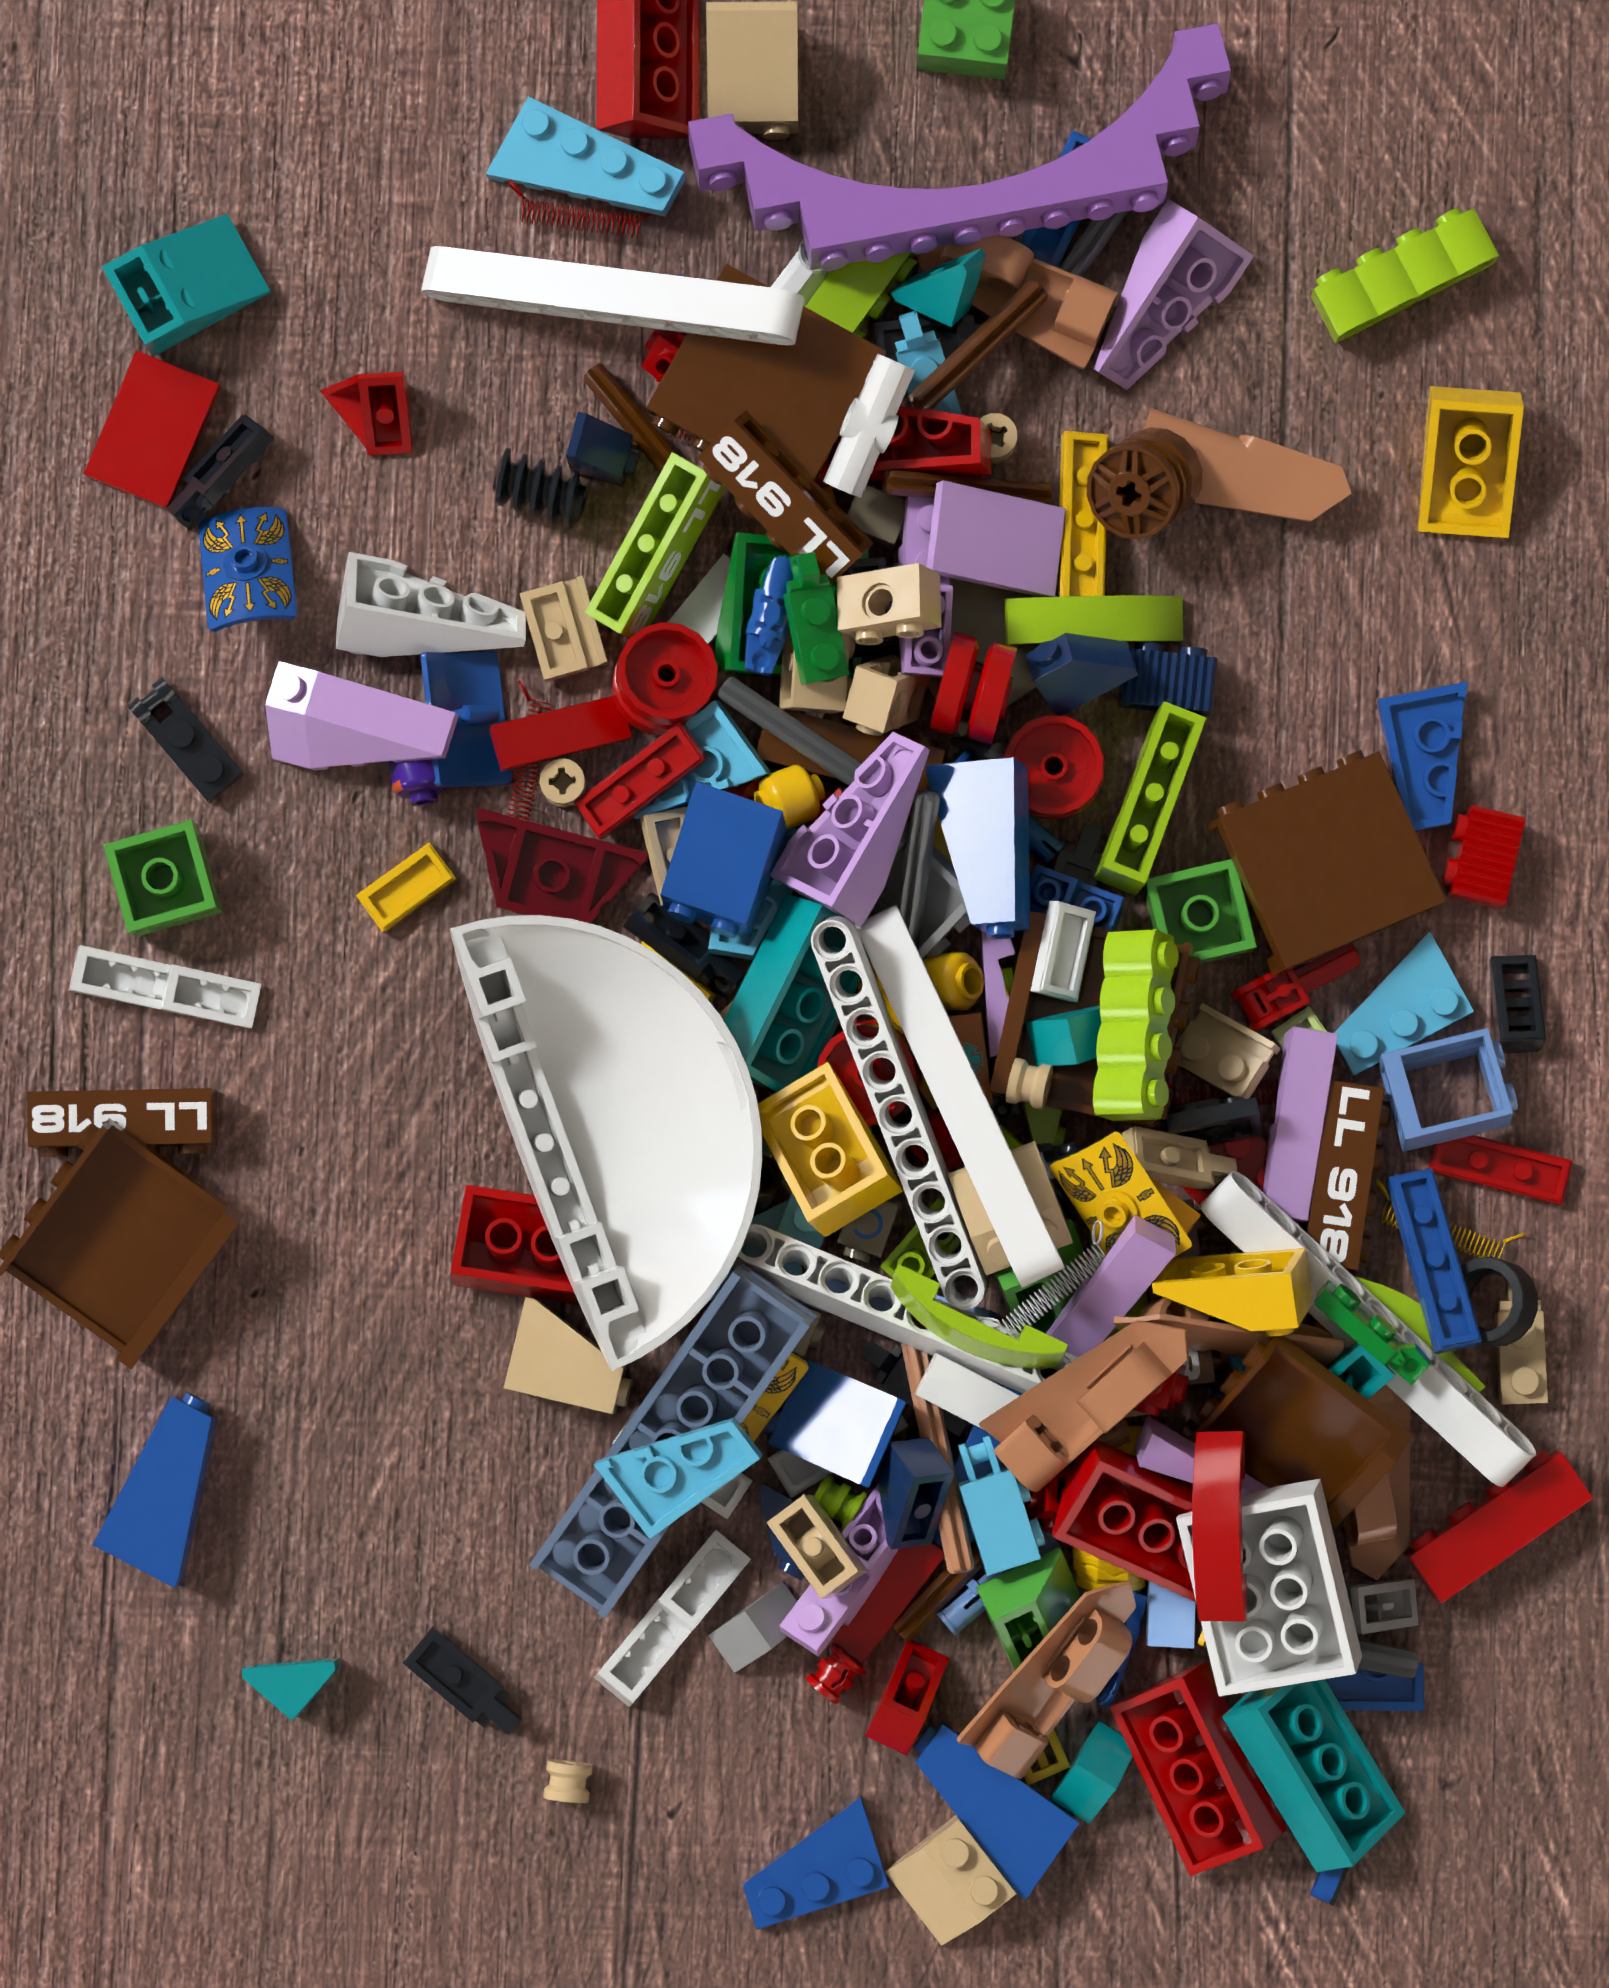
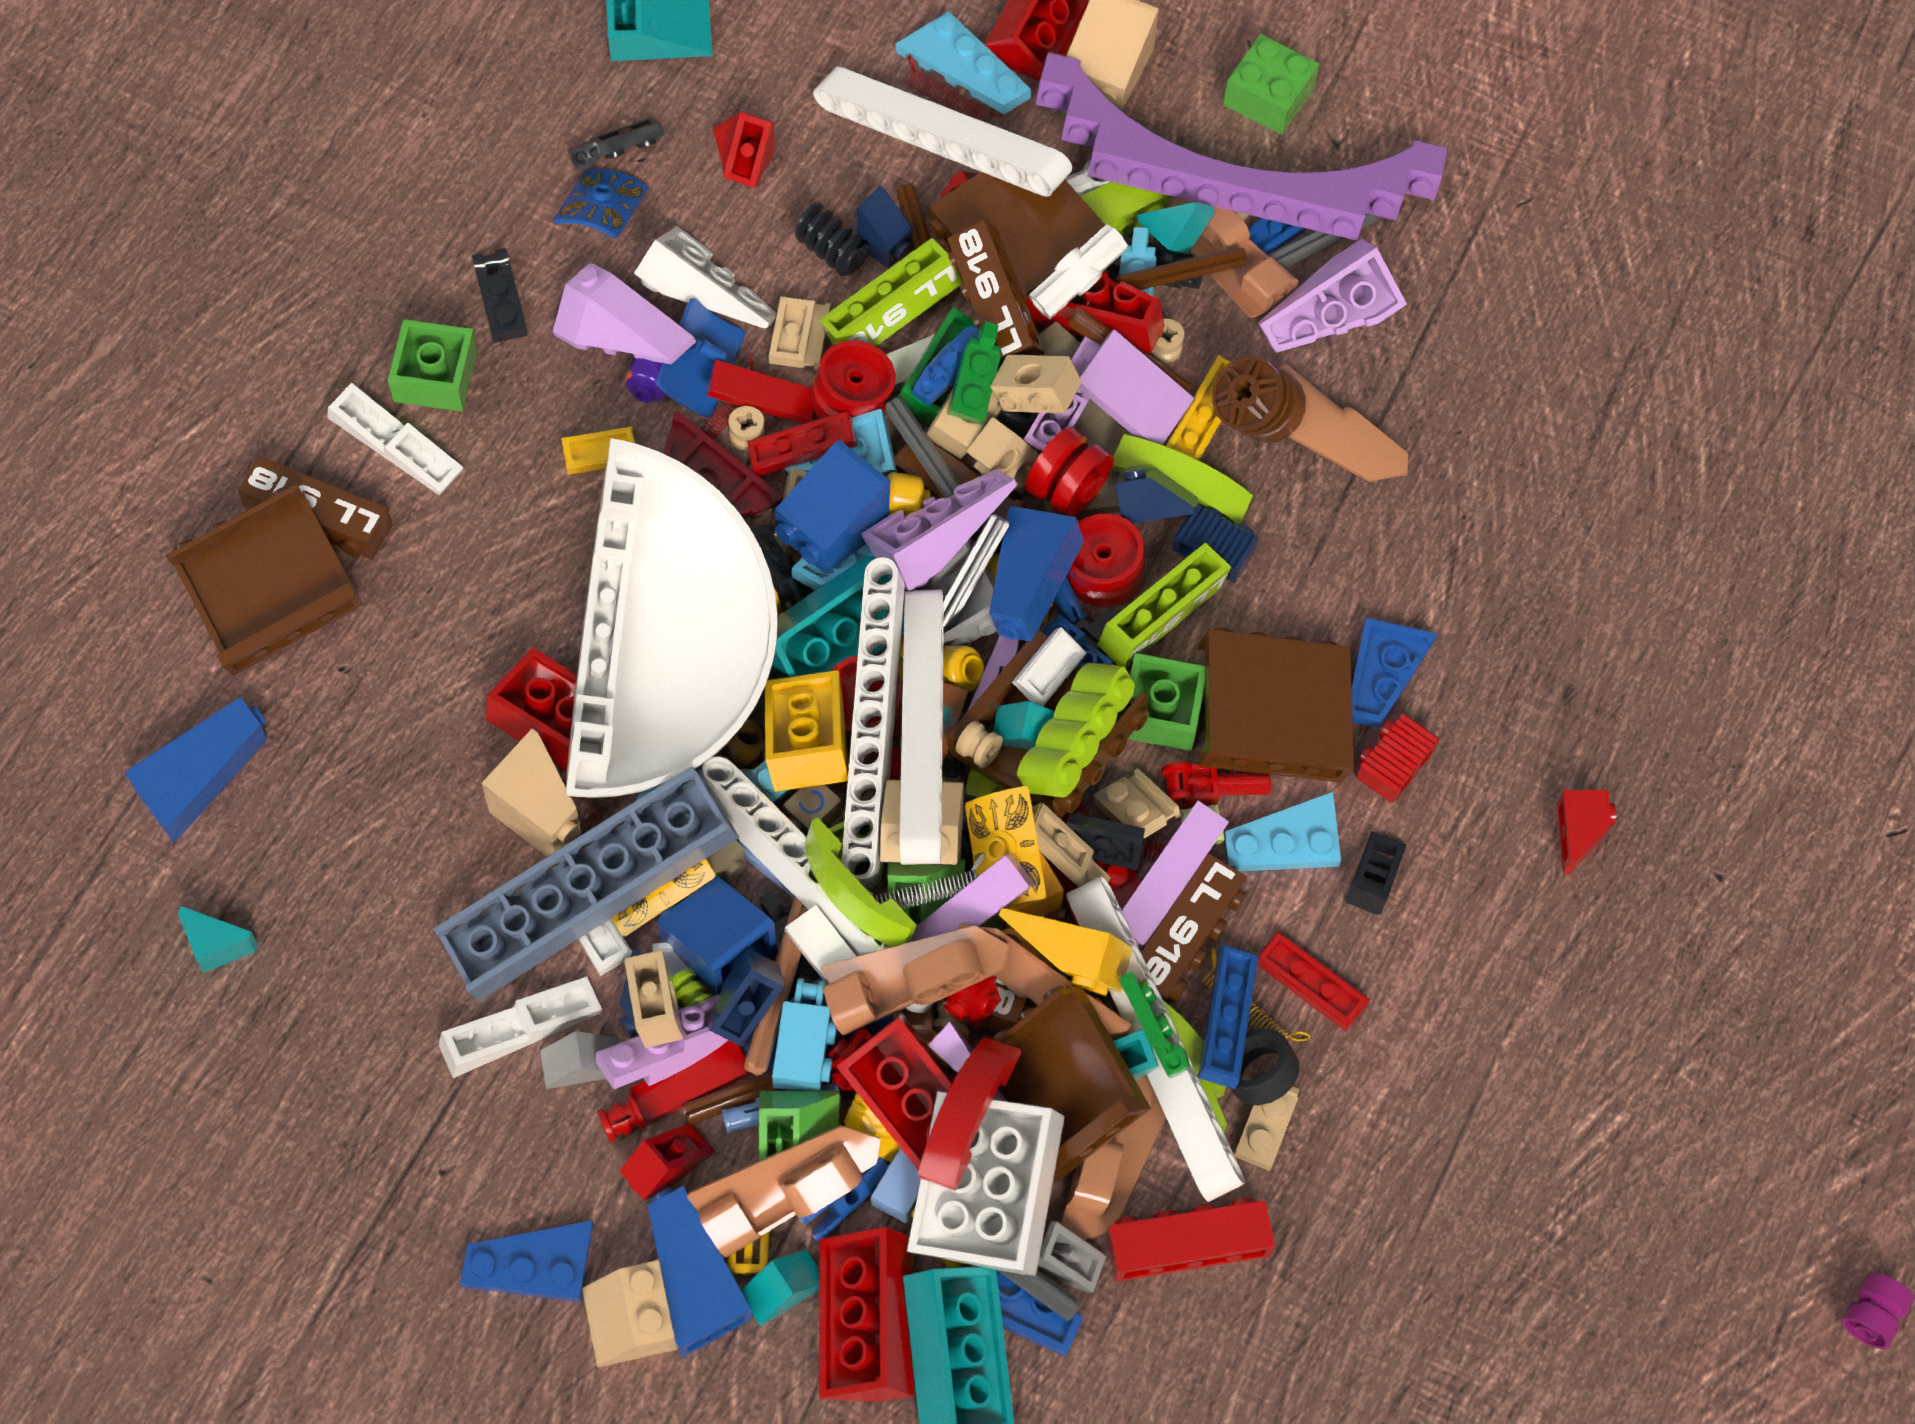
camera: 20 degrees right, 20 degrees down
(152, 430) = (585, 102): red tile -> none
(462, 1681) = (338, 997): black hinge -> none
(567, 1781) = (376, 1104): tan wheel -> none
(677, 1473) = (571, 897): medium azure wing -> none
(1403, 1110) = (1298, 876): medium blue window -> none
(1404, 275) = (1513, 358): lime brick -> none
(1470, 461) = (1504, 493): yellow slope -> none

